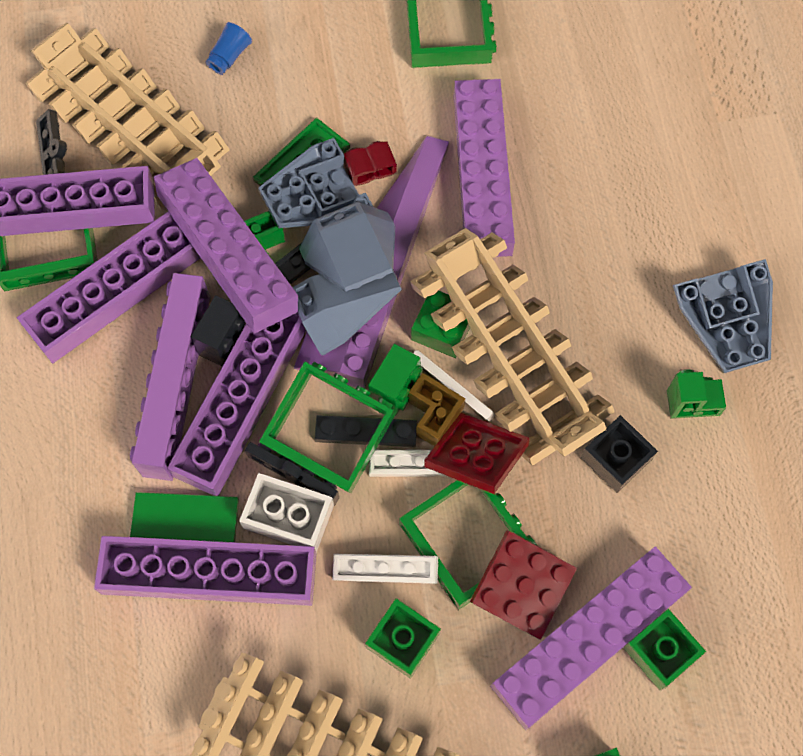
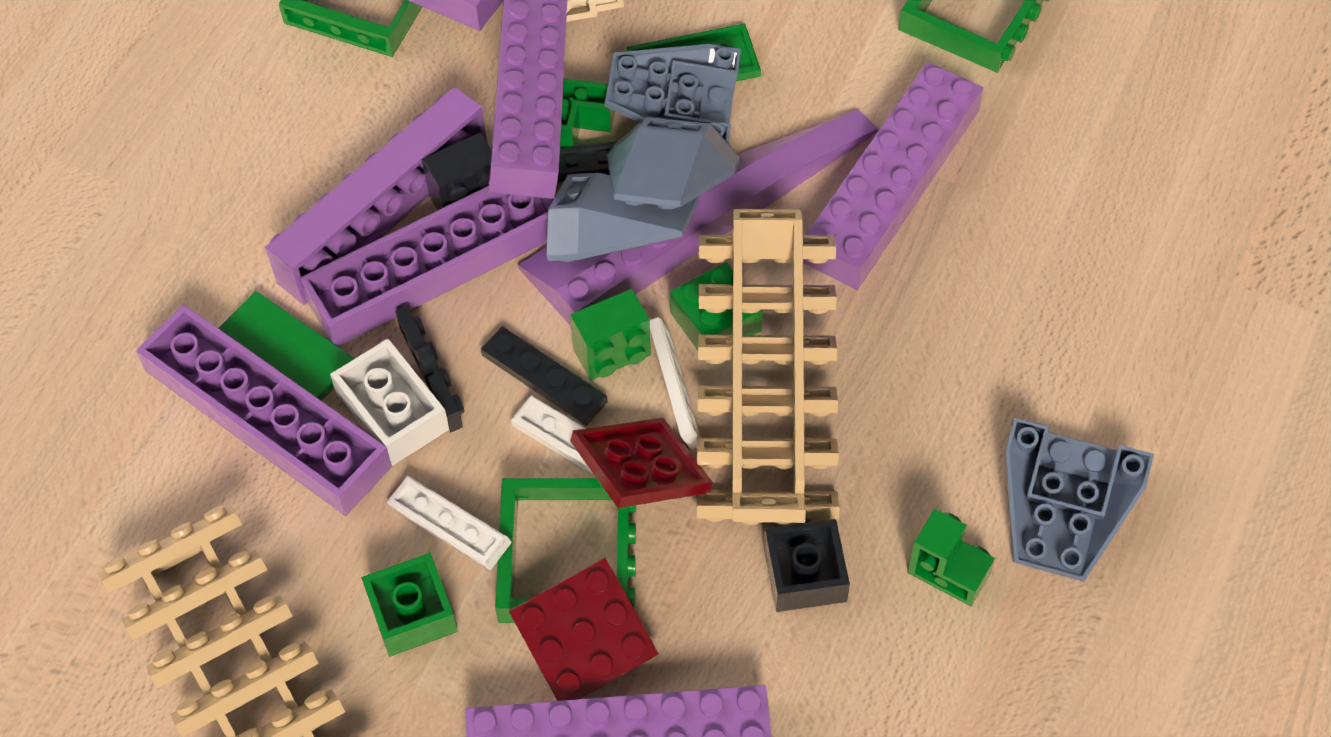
camera: 35 degrees right, 10 degrees down
(108, 288) = (381, 72): medium lavender brick -> none
(340, 383) = (476, 291): green window -> none
(370, 163) = (766, 101): dark red brick -> none
(440, 408) = (639, 389): pearl gold brick -> none

